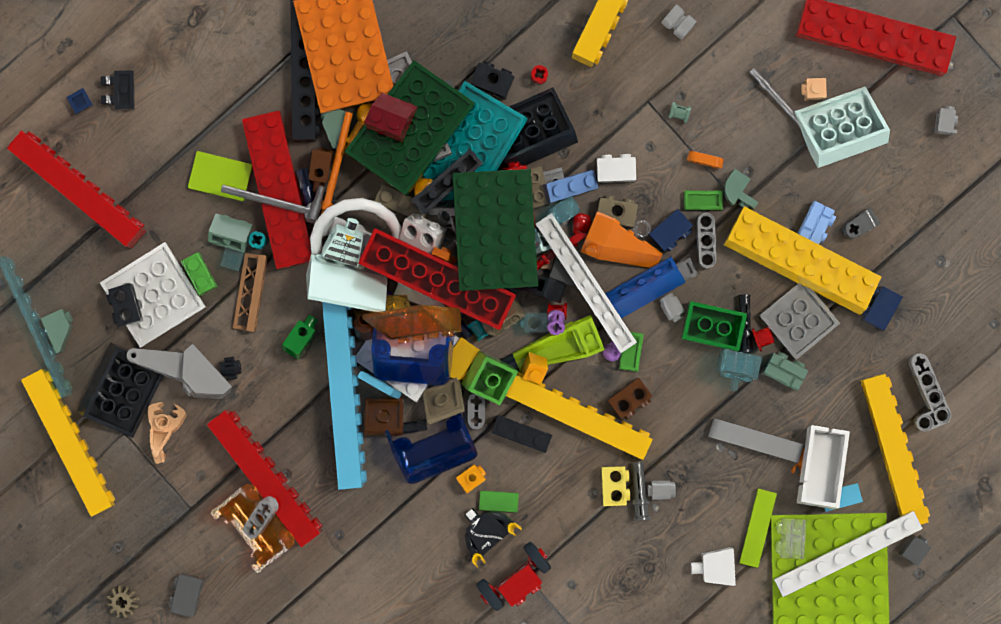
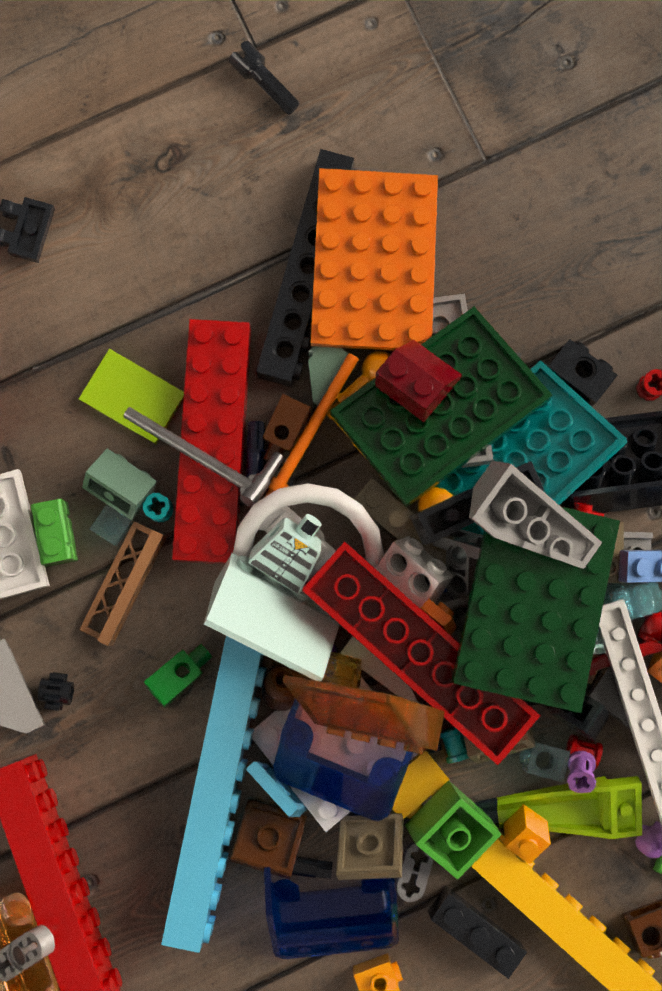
camera: 10 degrees right, 5 degrees down
(472, 184) = (523, 515): none -> light grey wedge

